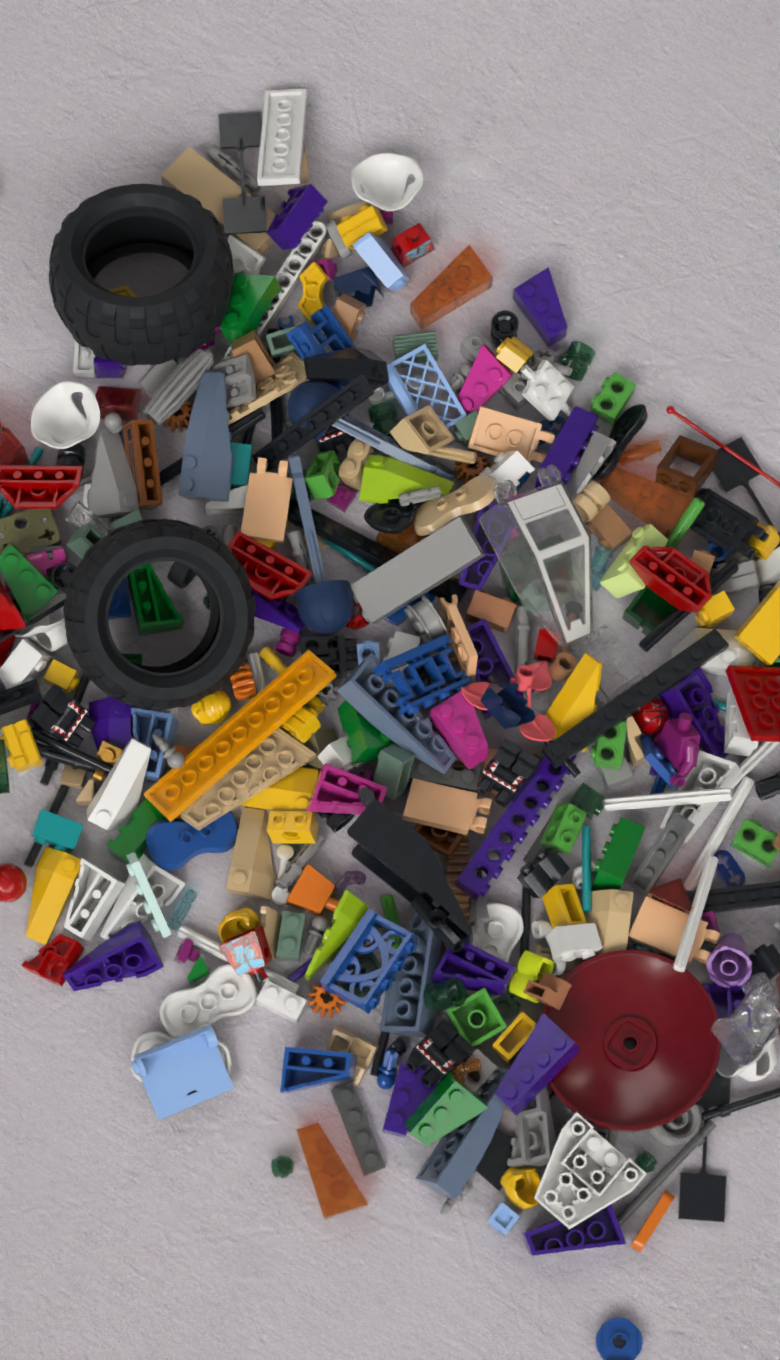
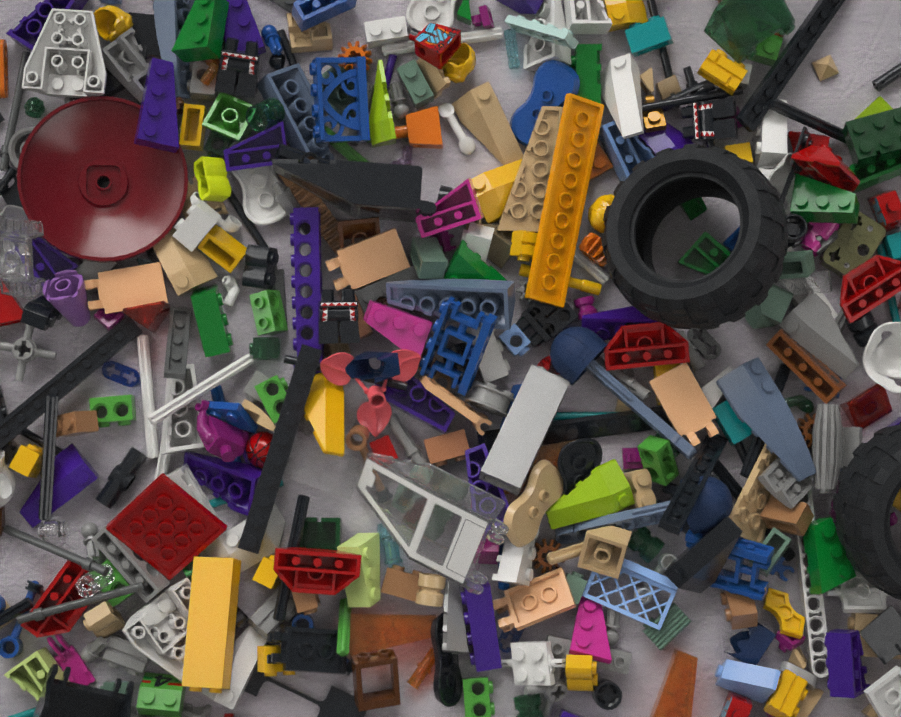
camera: 145 degrees right, 10 degrees up
(114, 423) = (854, 382): light grey axle -> none
(167, 443) = (800, 402): none -> clear green arm
(174, 758) = (600, 147): light grey bar -> none
(292, 827) = (474, 164): yellow brick -> none
(295, 868) = (449, 138): light grey pin -> none
(420, 496) = (568, 493): light grey axle -> none
(548, 991) = (188, 171): nougat piece -> none
(586, 869) = (228, 293): teal piece -> none
(695, 913) = (117, 310): white axle -> none

